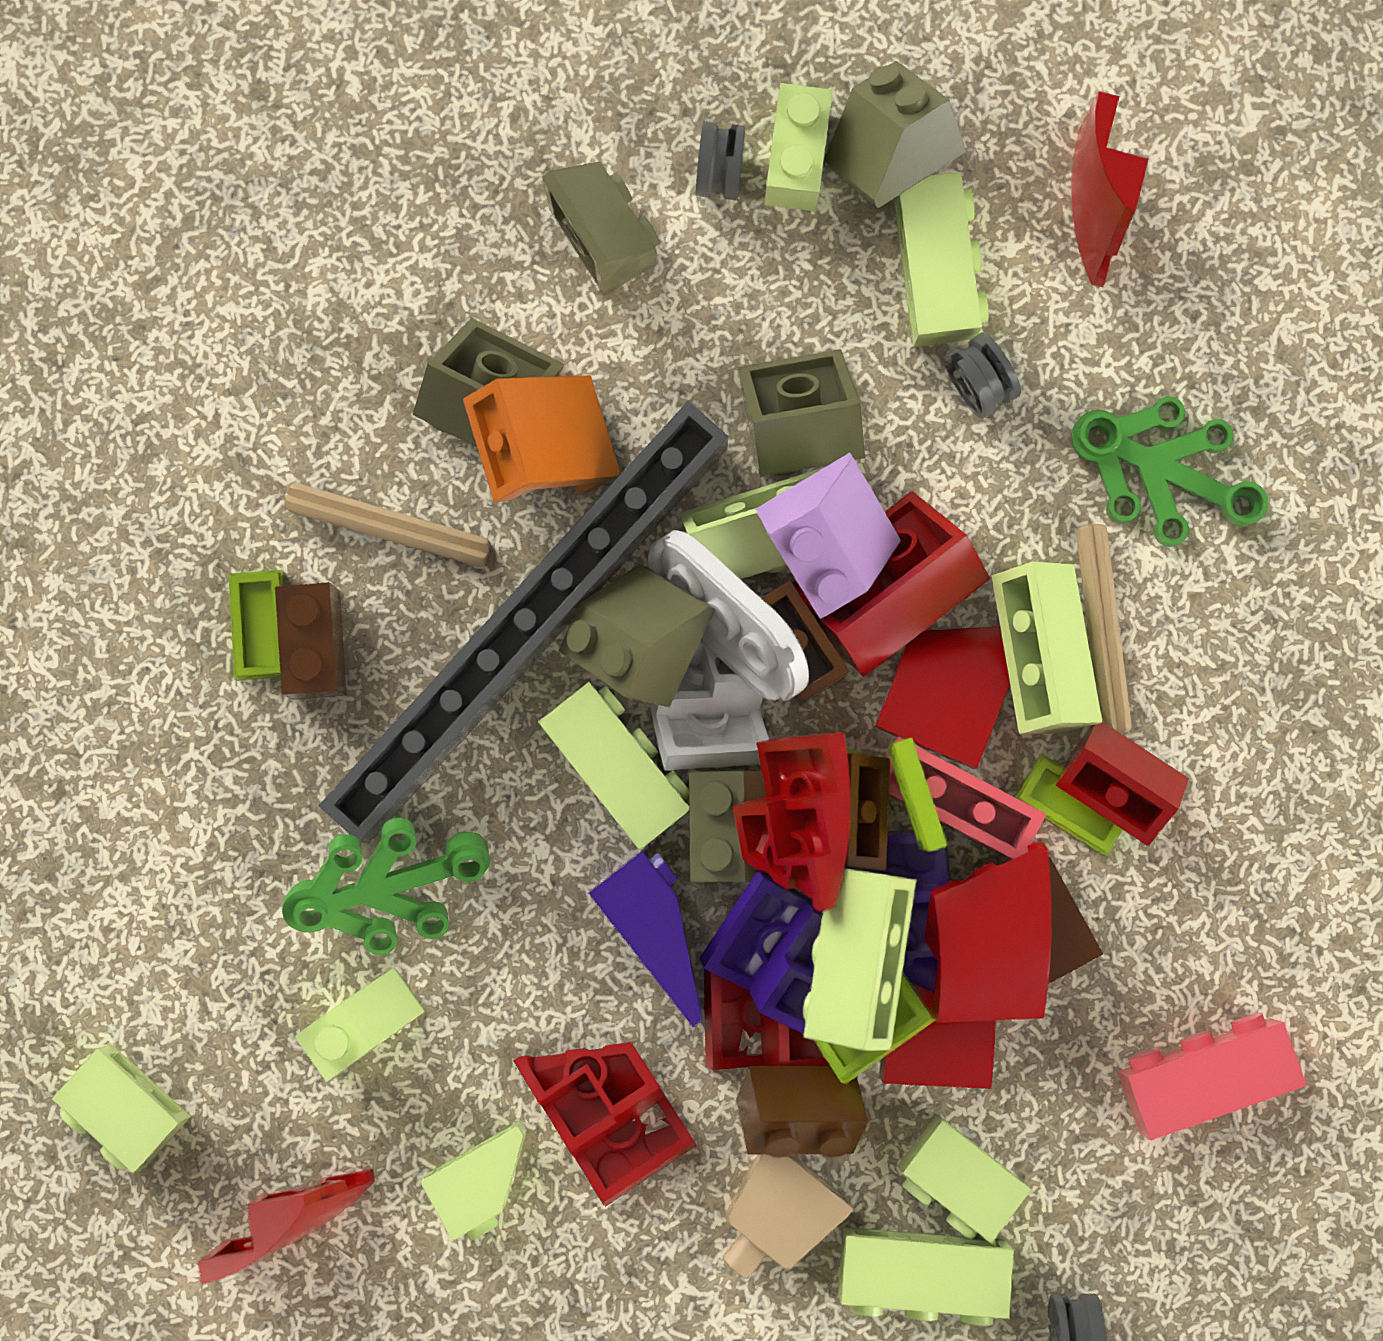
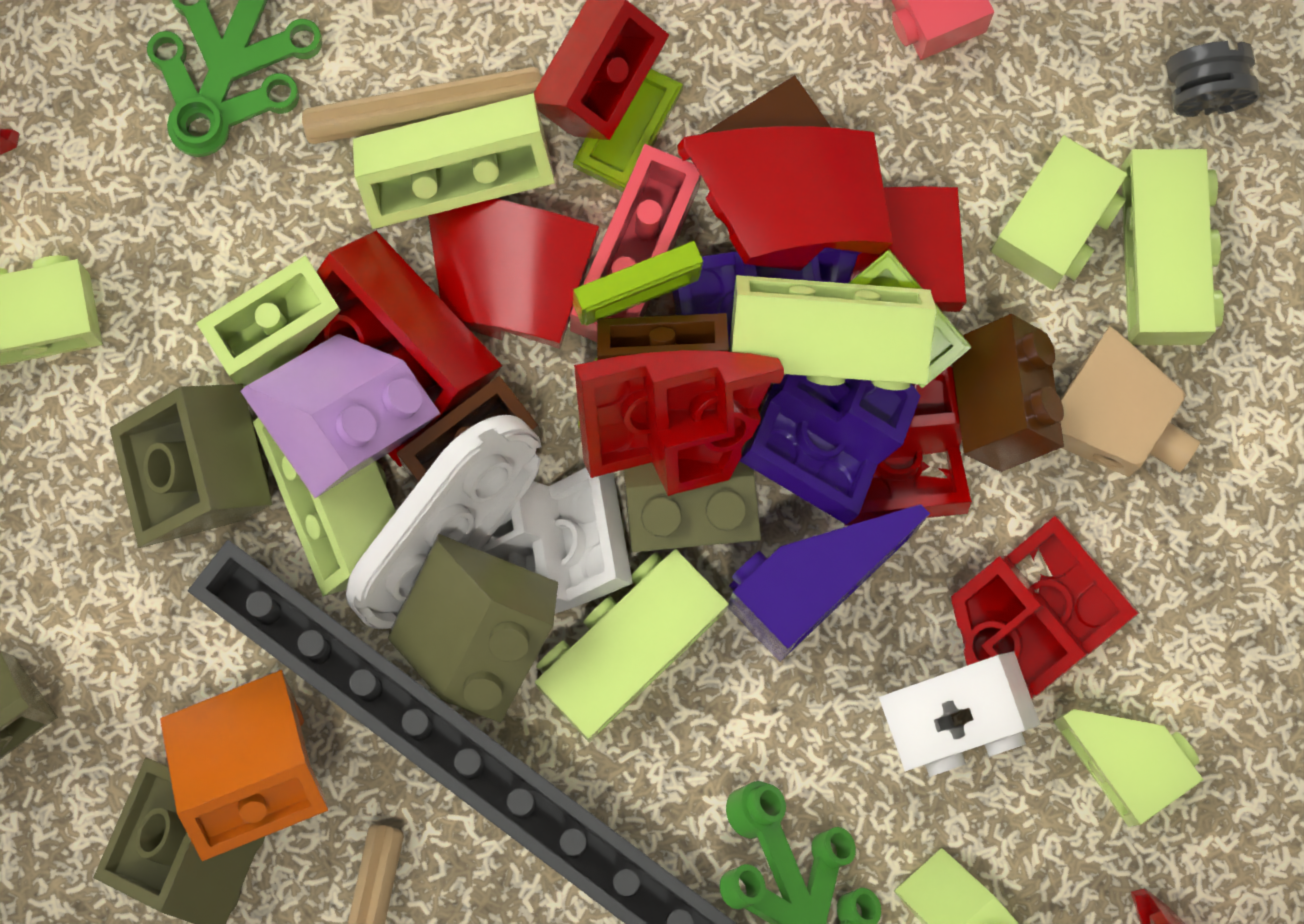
camera: 100 degrees left, 5 degrees down
(544, 1065) = (923, 719): none -> white brick
(913, 482) = (270, 322): none -> yellowish green slope
(983, 375) = (134, 256): dark grey wheel -> none

